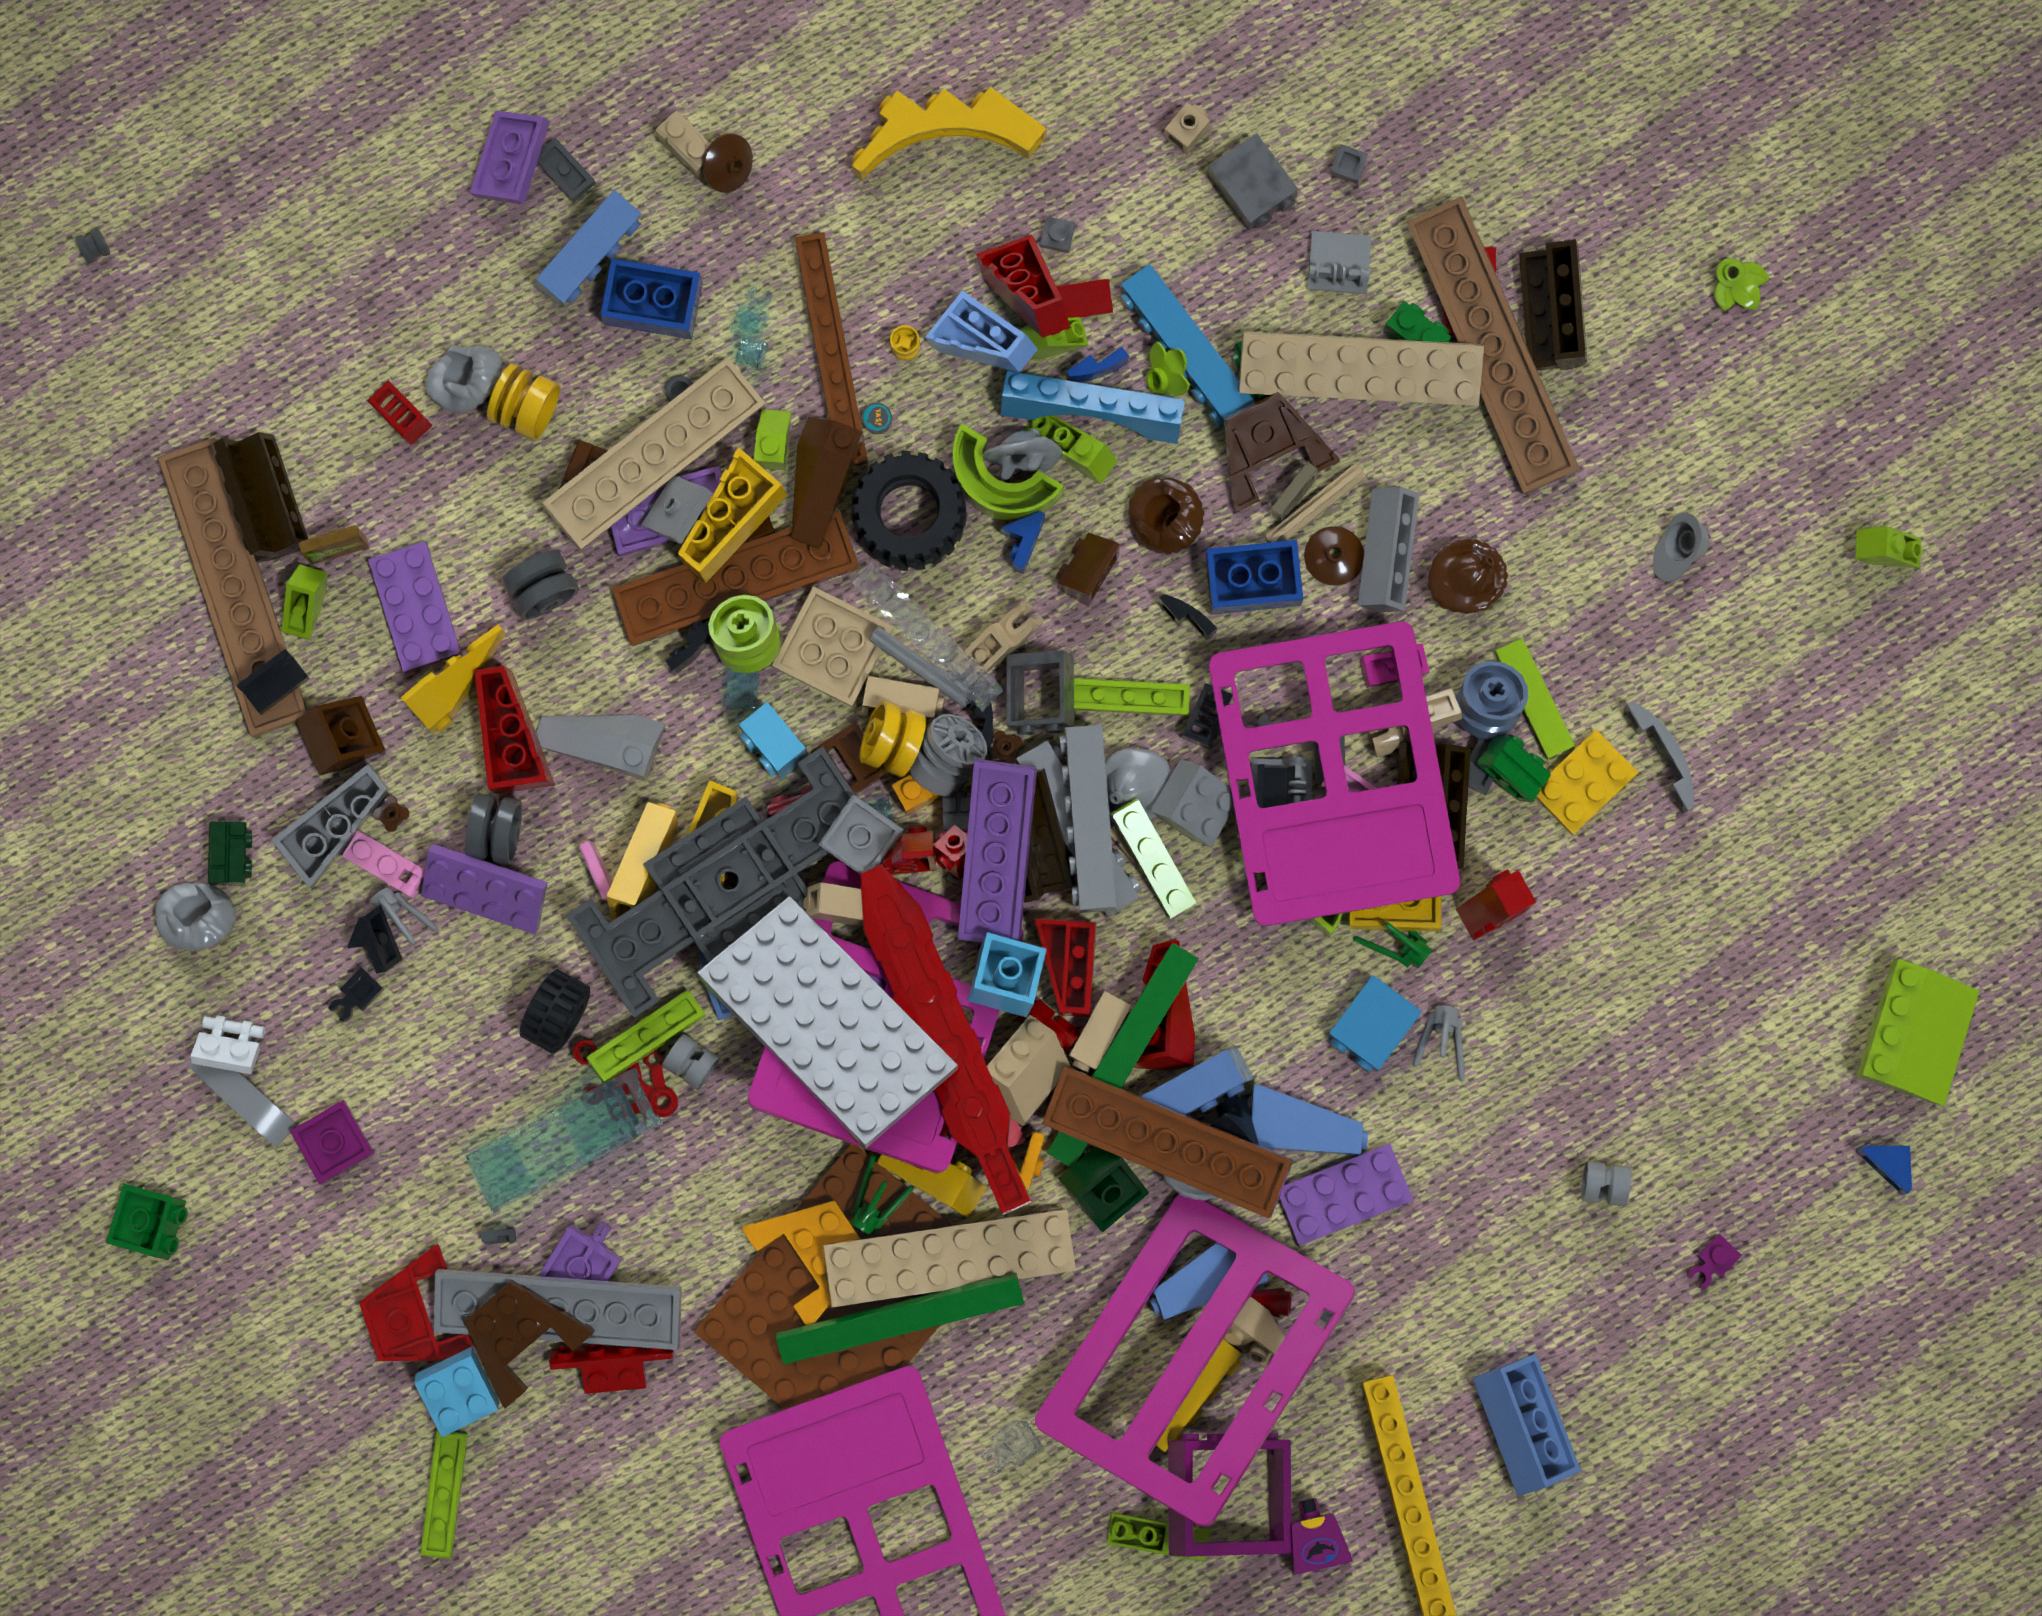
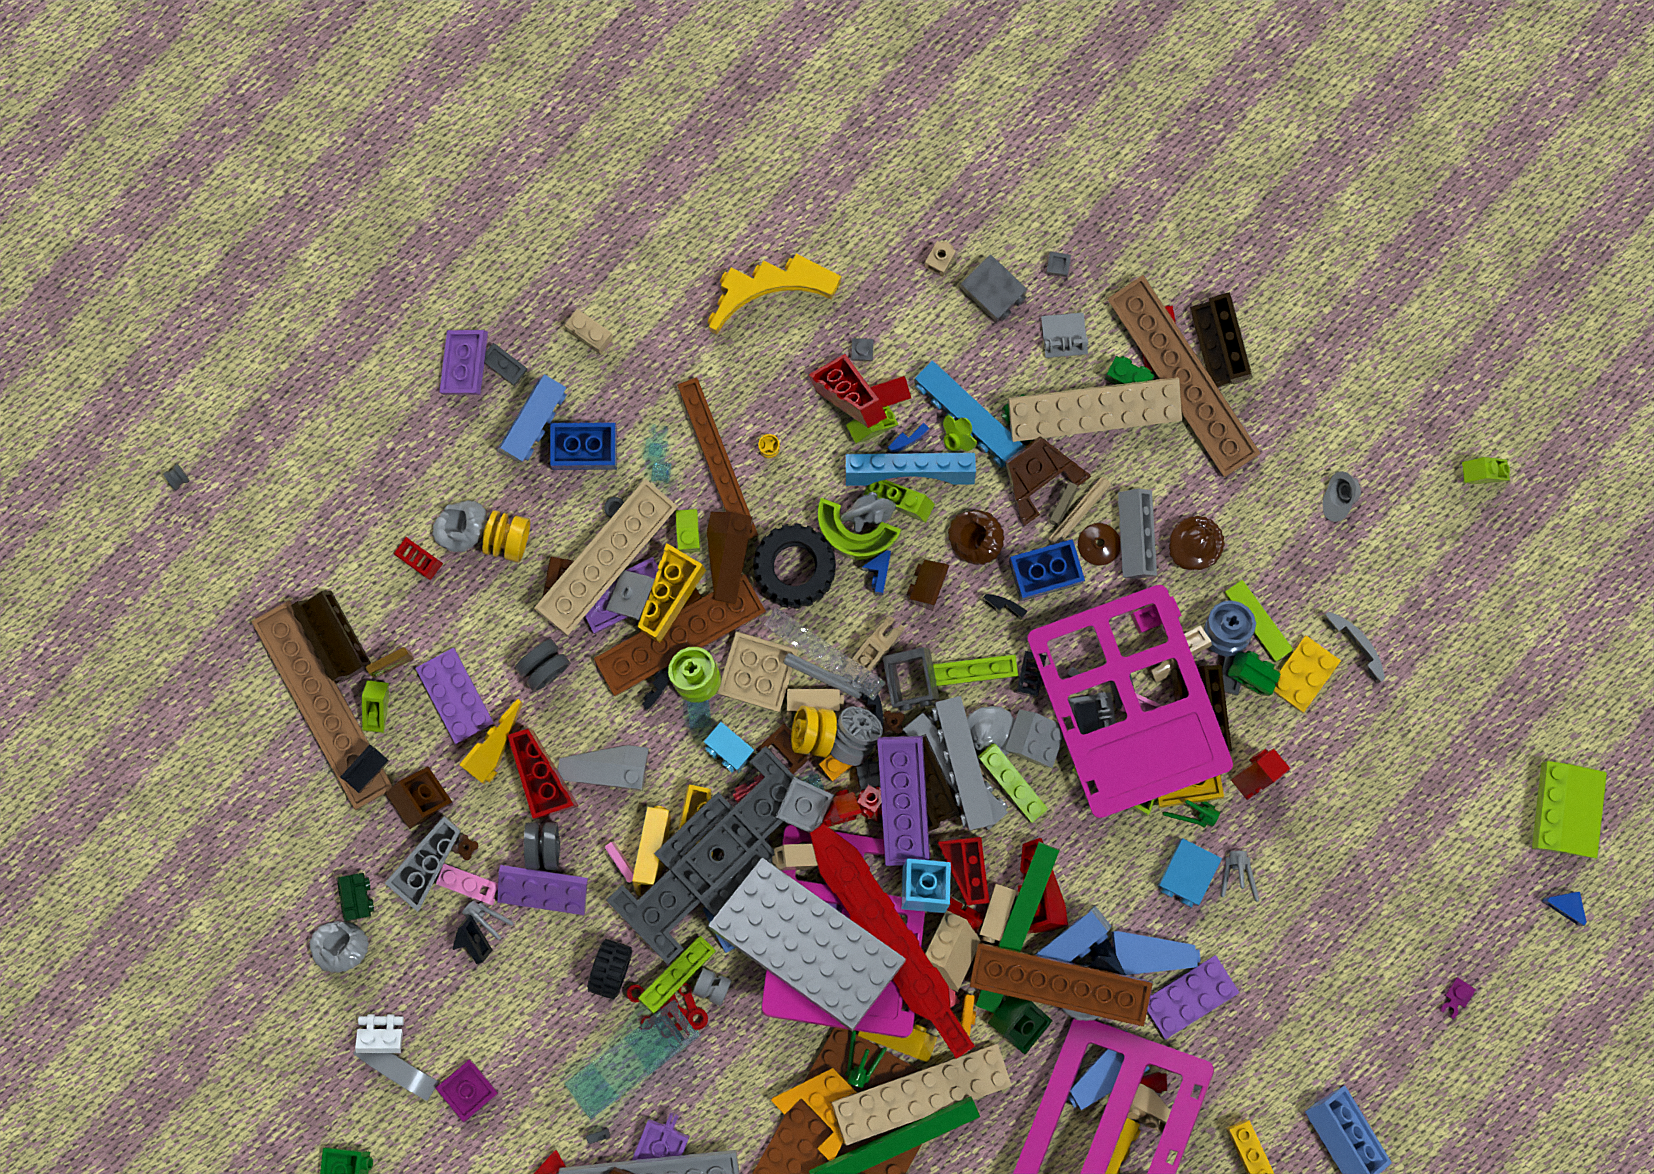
camera: 15 degrees left, 0 degrees up
(359, 992) = (466, 979): black plate -> none
(719, 161) = (619, 339): reddish brown dish -> none
(877, 418) = (758, 503): dark grey tile -> none
(980, 336) = (822, 432): light blue wedge -> none
(1606, 1183) = (1373, 956): light grey wheel -> none
(1742, 287) = (1349, 304): lime plate -> none

